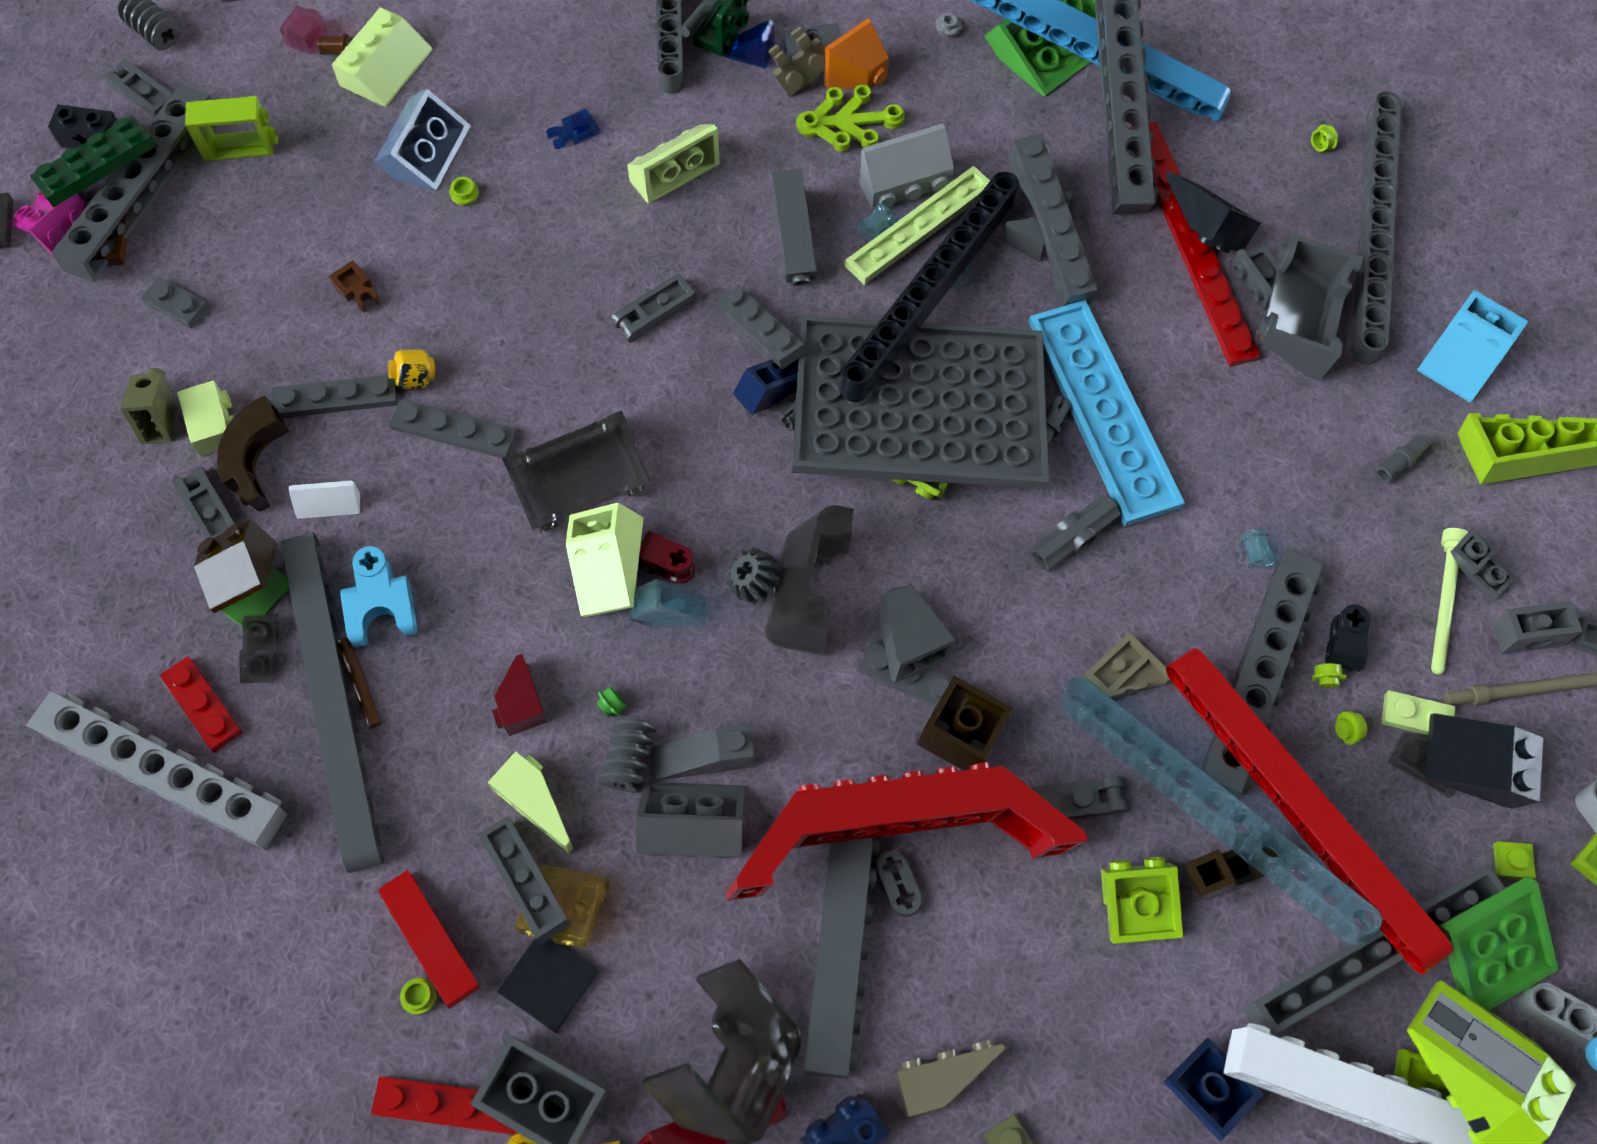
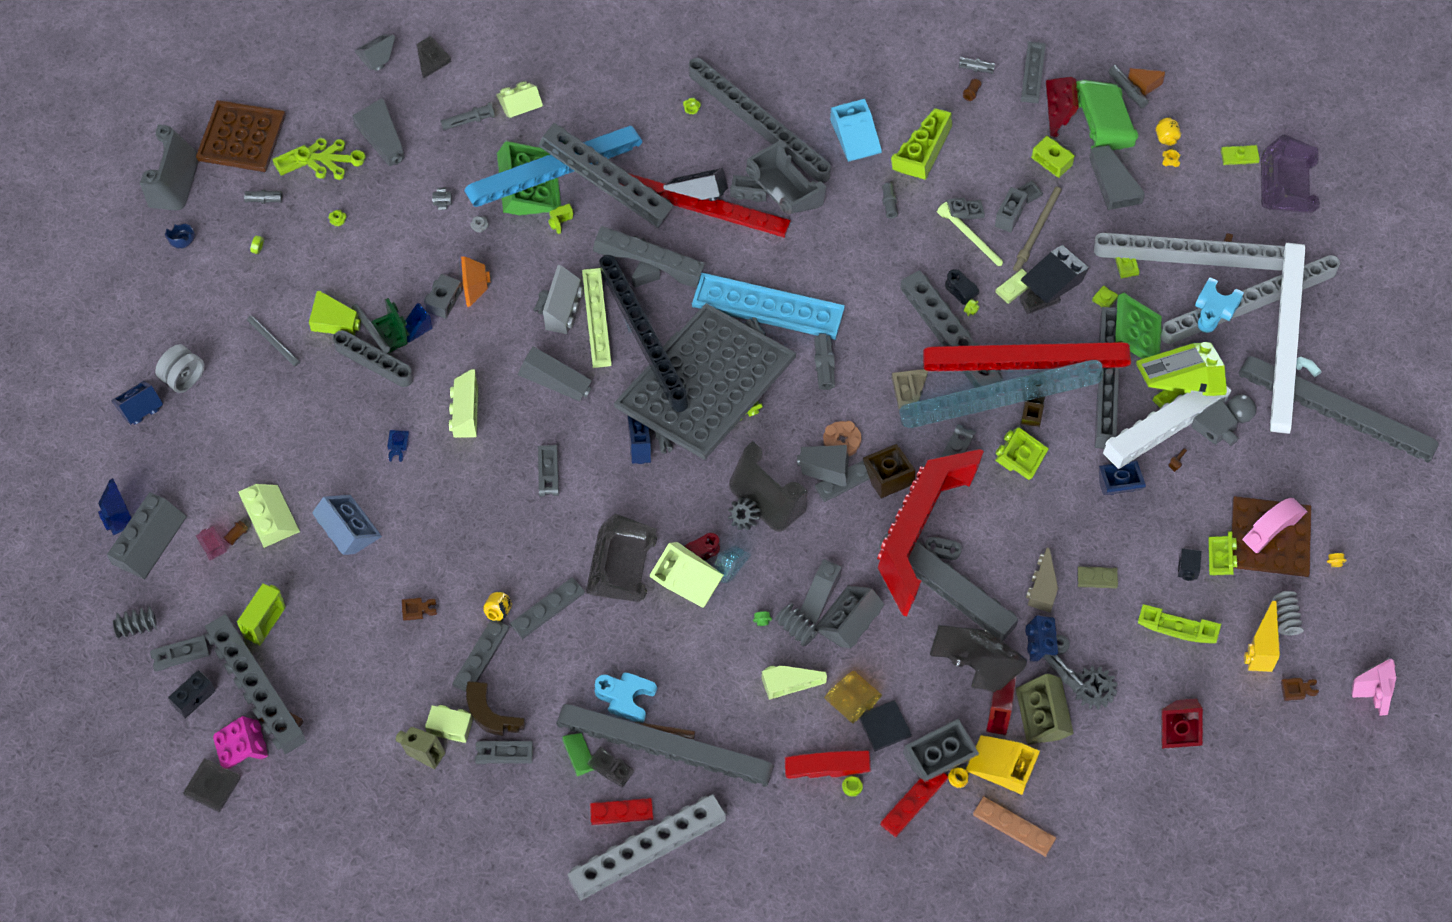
camera: 55 degrees left, 5 degrees down
(92, 160) = (230, 695): dark green plate -> none
(175, 302) = (352, 707): dark grey plate -> none
(234, 564) = (561, 747): slope -> none
(325, 499) = (545, 691): white slope -> none
(463, 191) = (396, 521): lime plate -> none
(518, 700) = (731, 657): dark red slope -> none
(524, 880) = (830, 703): dark grey plate -> none
(761, 327) = (604, 426): dark grey plate -> none
(802, 66) = (455, 307): dark tan plate -> none
(847, 120) = (502, 310): lime plant -> none
(876, 222) = (580, 339): clear light blue bush -> none
(992, 629) = (845, 429): none -> nougat plate
(1030, 96) = (560, 215): none -> lime bracket
(1258, 548) = (889, 292): clear light blue bush -> none
(1351, 727) = (1002, 316): lime plate -> none

